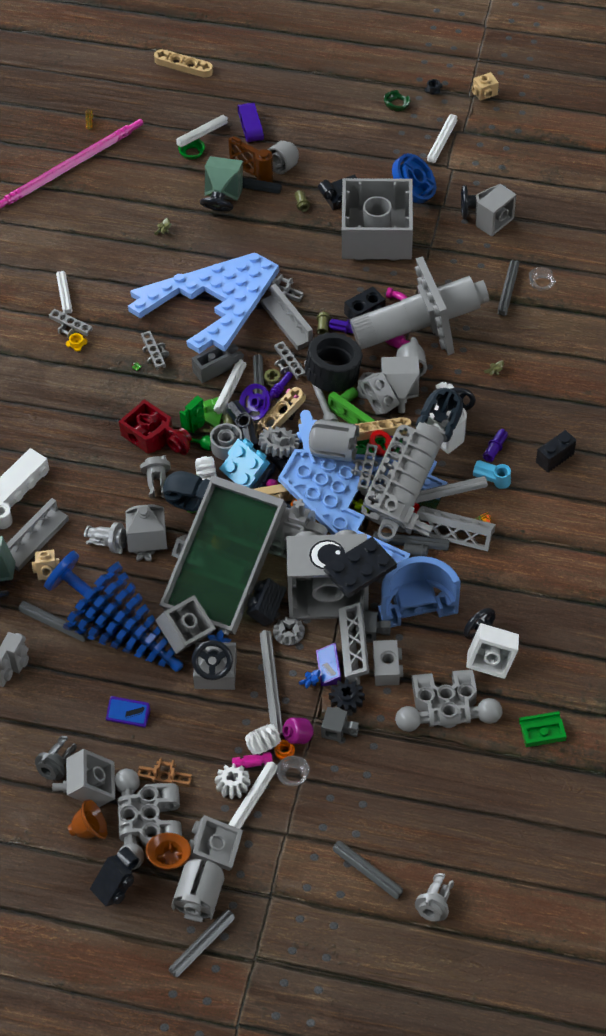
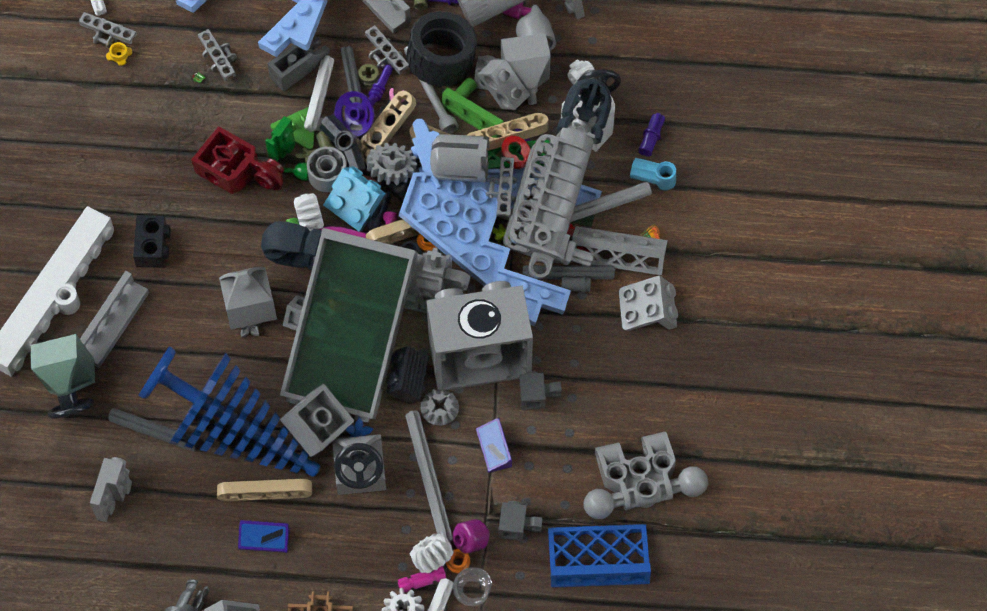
camera: 10 degrees left, 10 degrees up
(44, 563) = (132, 358): tan brick -> none
(76, 480) = (148, 241): none -> black brick
(112, 537) = (208, 312): light grey piece -> none
(134, 676) = (264, 490): none -> tan beam
(155, 468) = (246, 215): light grey piece -> none
(311, 678) = (475, 465): blue plant -> none
(347, 696) = (515, 477): black gear -> none
(349, 641) = (515, 415): light grey fence -> none
(360, 567) = (521, 331): black plate -> none
(384, 652) = (562, 448): light grey brick -> none
(401, 772) = (599, 574): none -> blue fence
(413, 590) = (582, 340): medium blue piece -> none
(476, 569) = (648, 303): none -> light grey bracket
(491, 647) = (687, 403): white piece -> none
(495, 368) = (638, 32): olive plant -> none
(542, 729) = (757, 496): green plate -> none
(556, 451) = (725, 135): black brick -> none

